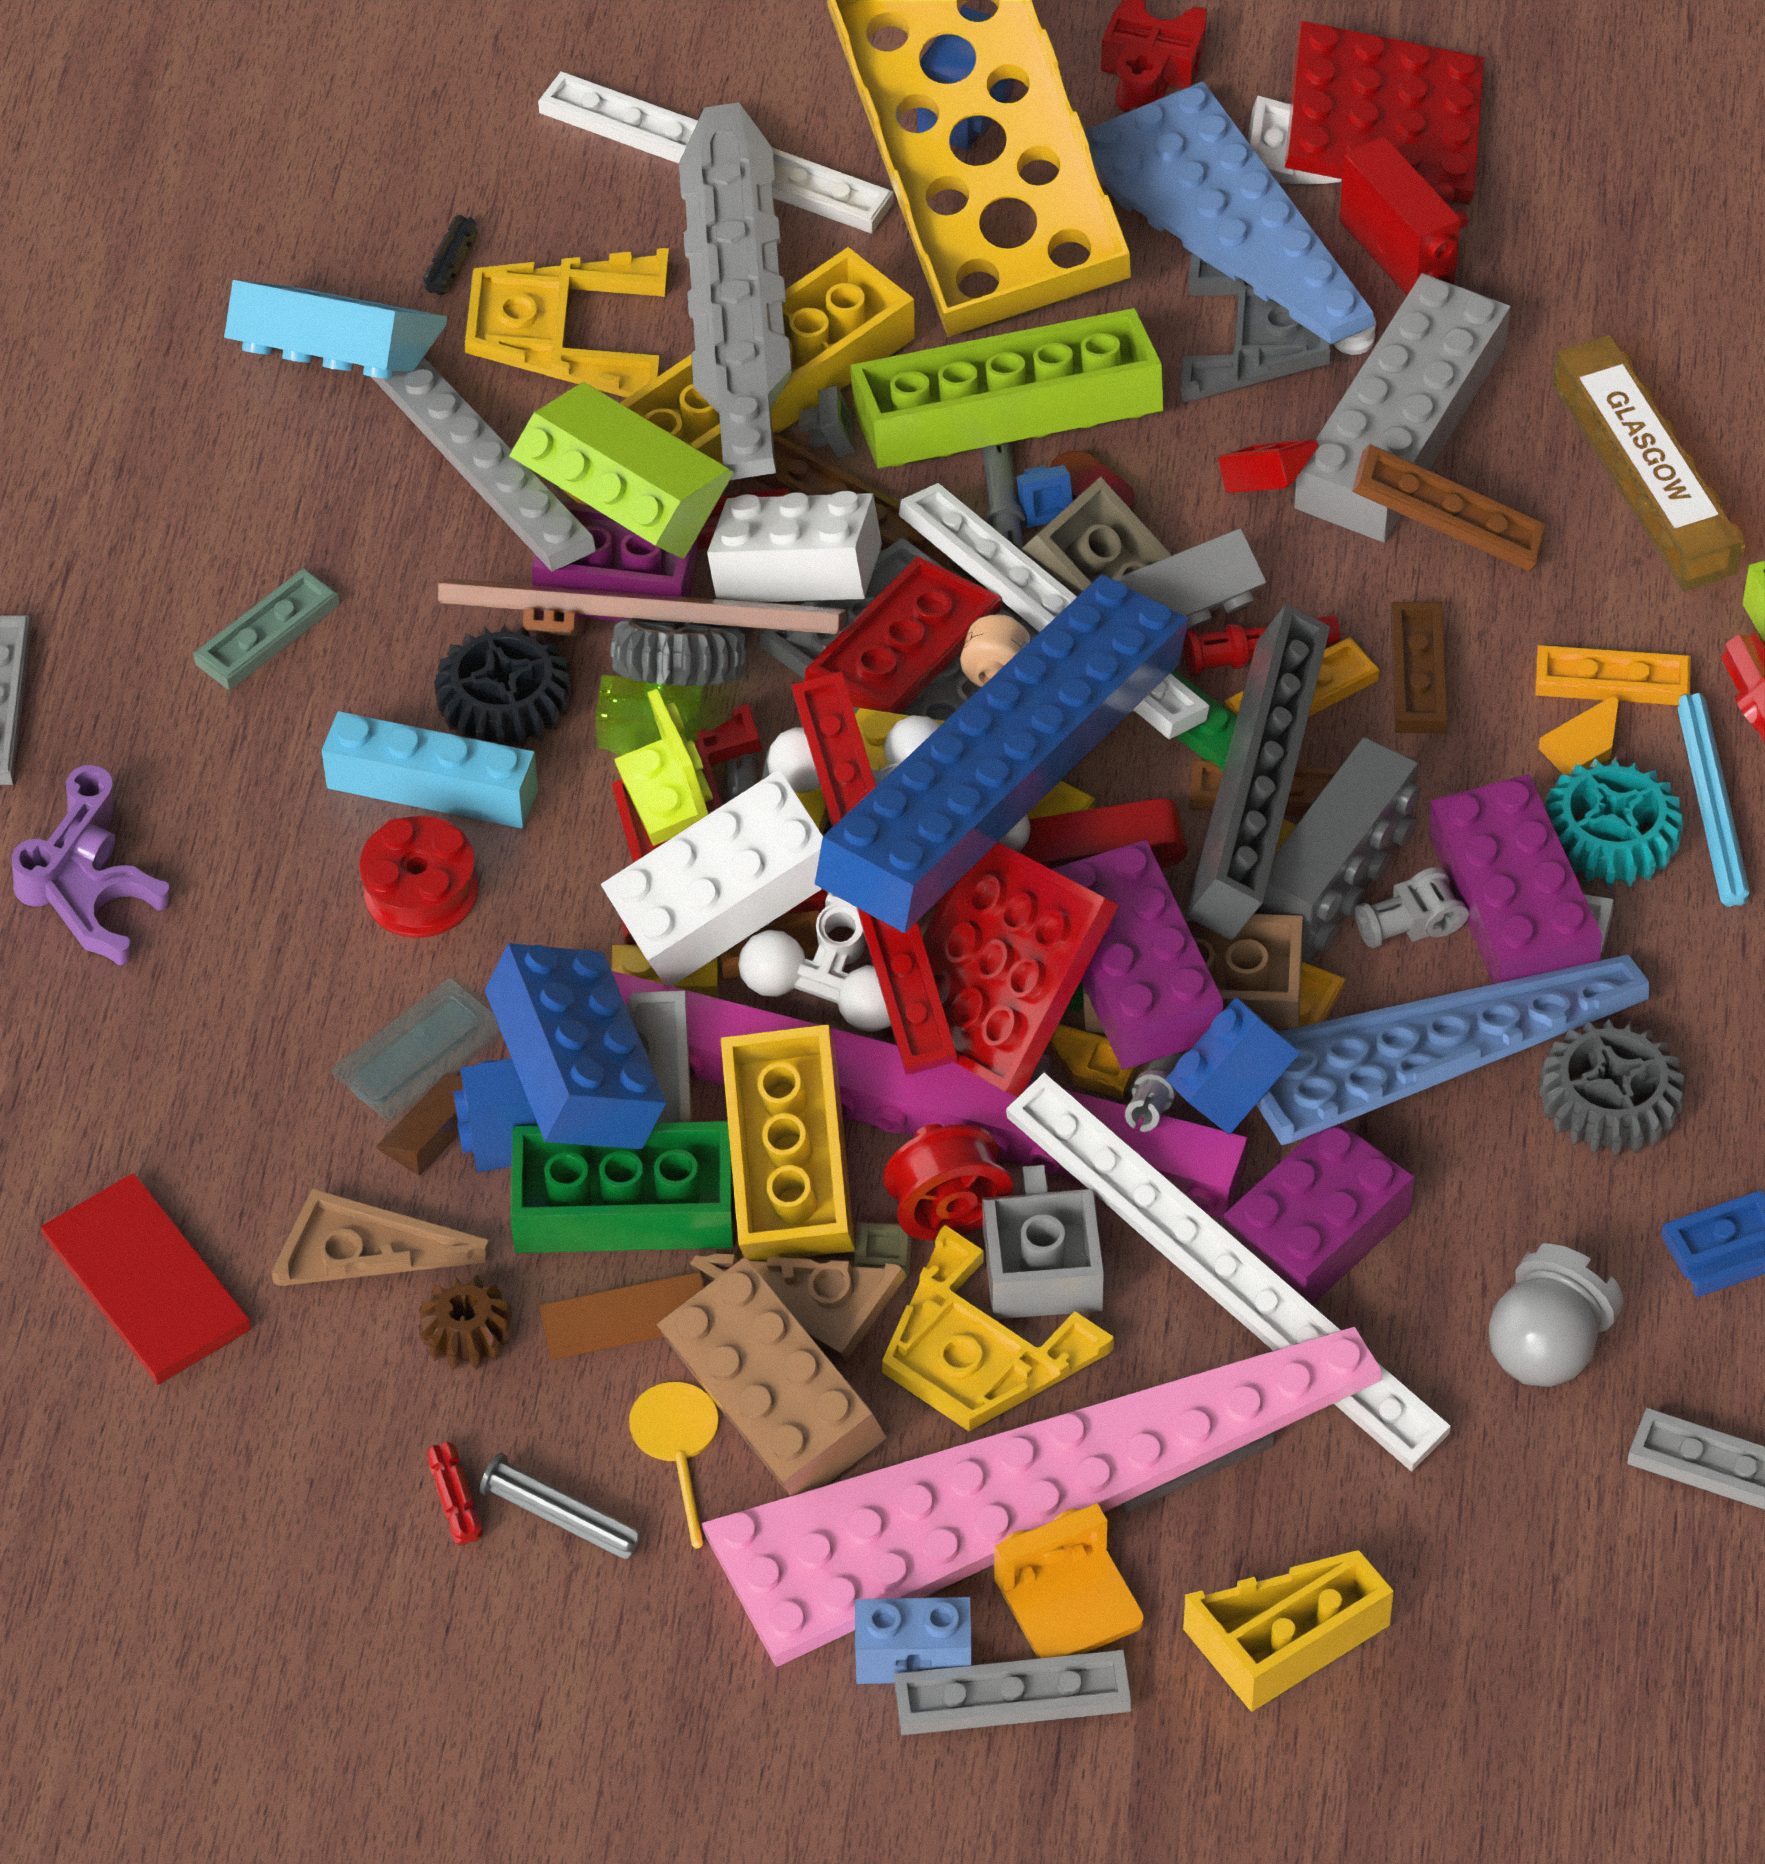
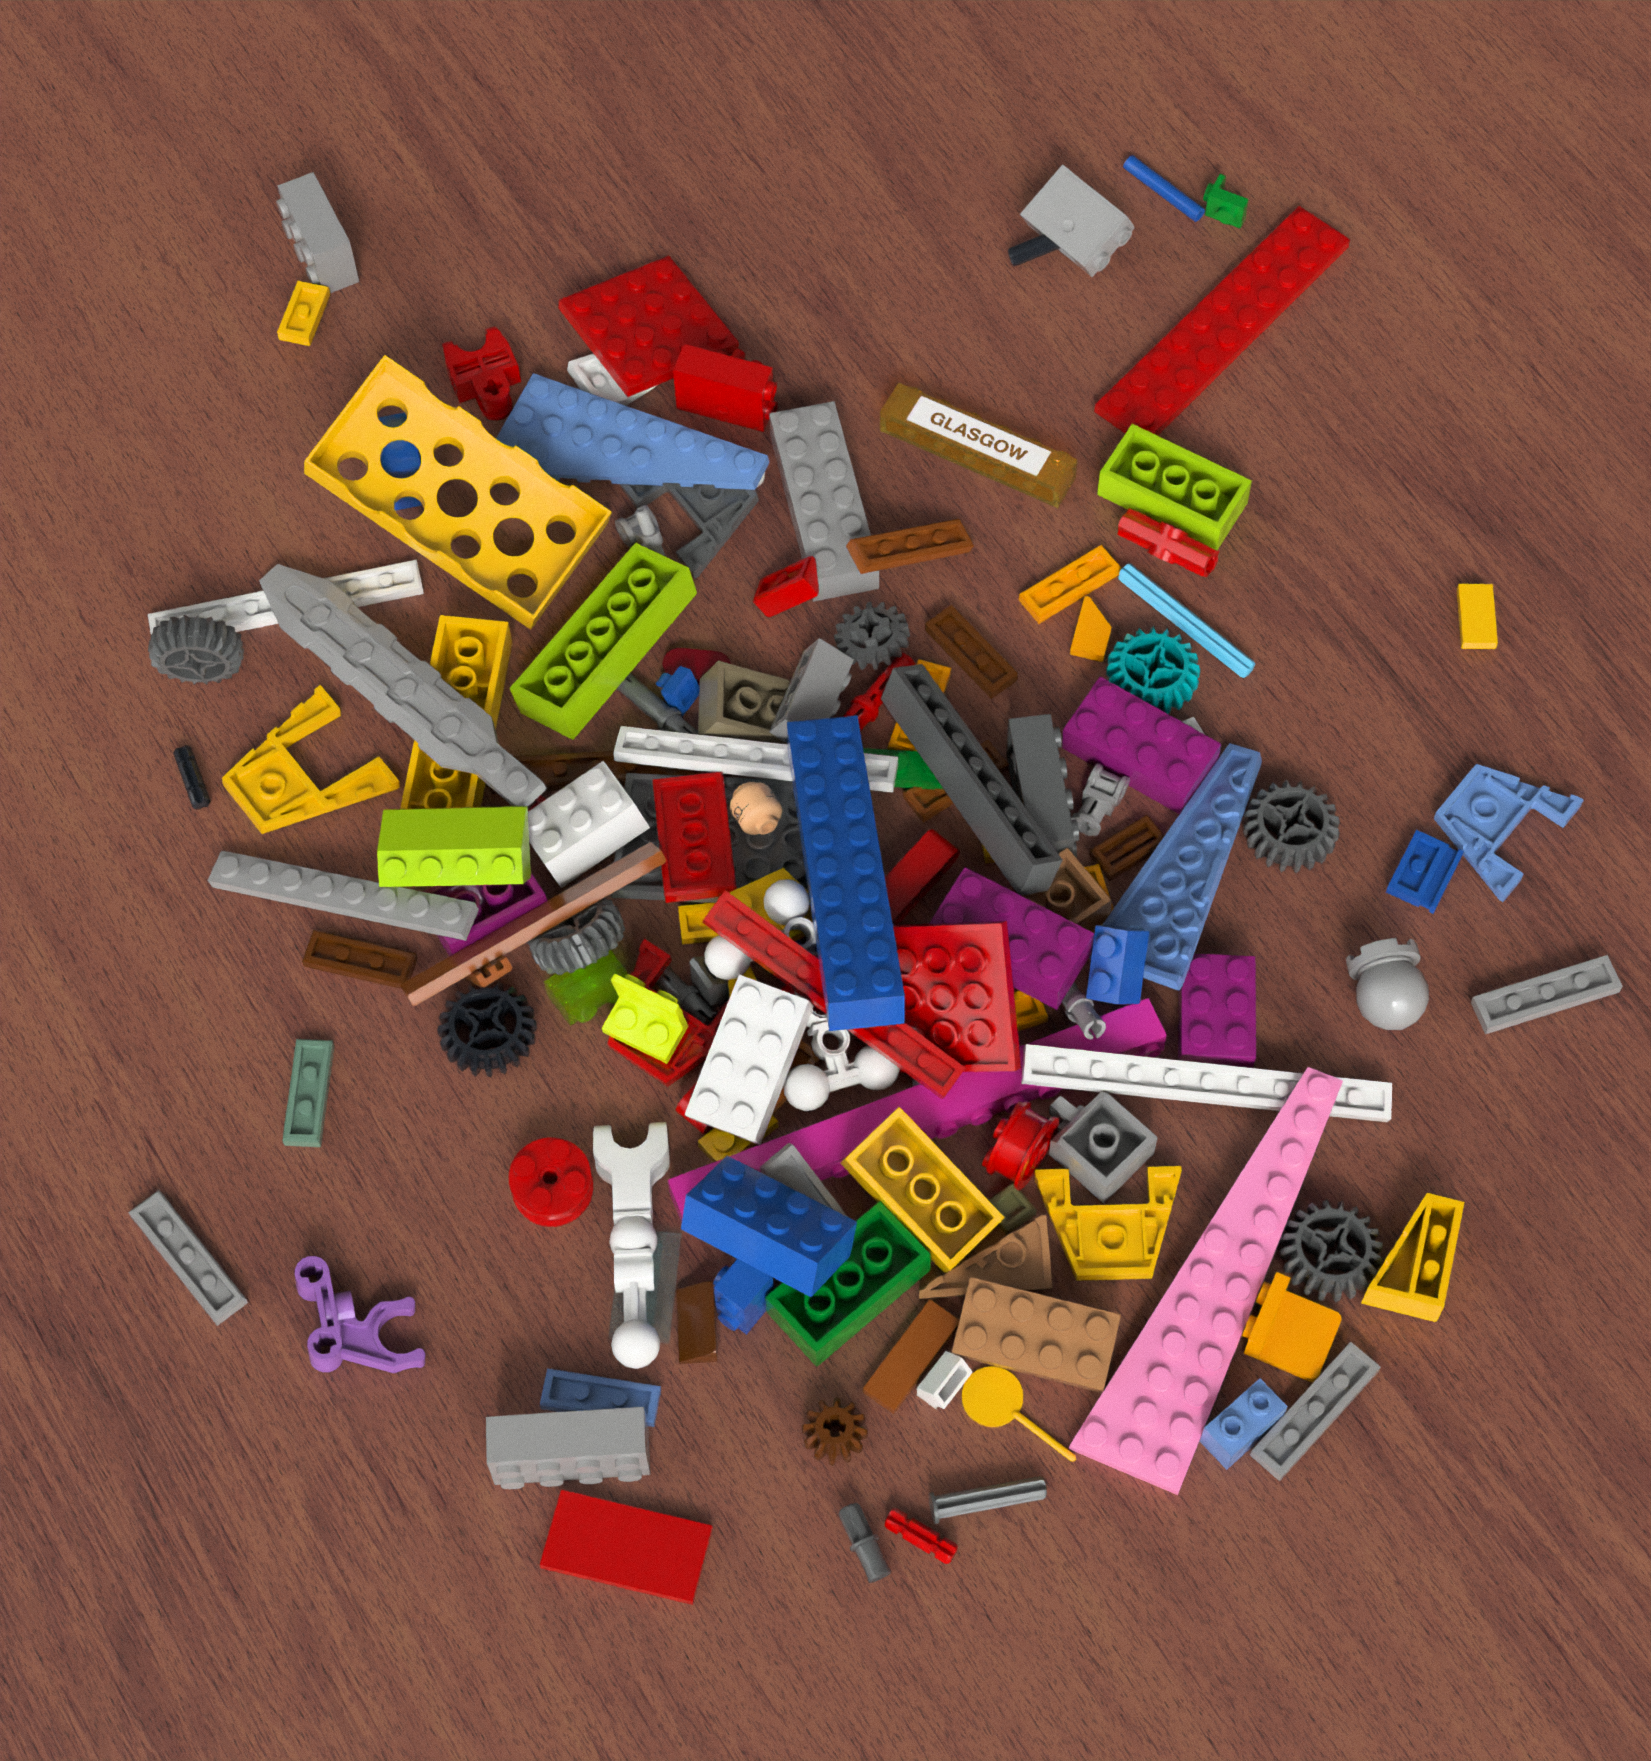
camera: 40 degrees left, 10 degrees up
(174, 1128) = (568, 1447): none -> light grey brick
(264, 1120) = (580, 1392): none -> medium blue tile
(330, 327) = (174, 875): medium azure slope -> none
(353, 1240) = (725, 1430): medium nougat wing -> none
(386, 1453) = (864, 1542): none -> dark grey axle
(430, 770) = (496, 1111): medium azure brick -> none
(442, 534) = (359, 959): none -> reddish brown tile
(446, 980) = (633, 1237): none -> white piece
(565, 125) = (196, 649): none -> dark grey gear
(627, 1349) = (939, 1376): none -> white piece
(830, 423) = (518, 730): dark grey tile -> none
(1164, 309) = (641, 528): none -> light grey piece
(1216, 1520) = (1344, 1258): none -> dark grey gear
(1317, 575) = (872, 635): none -> dark grey gear
(1398, 990) = (1135, 858): none -> reddish brown tile

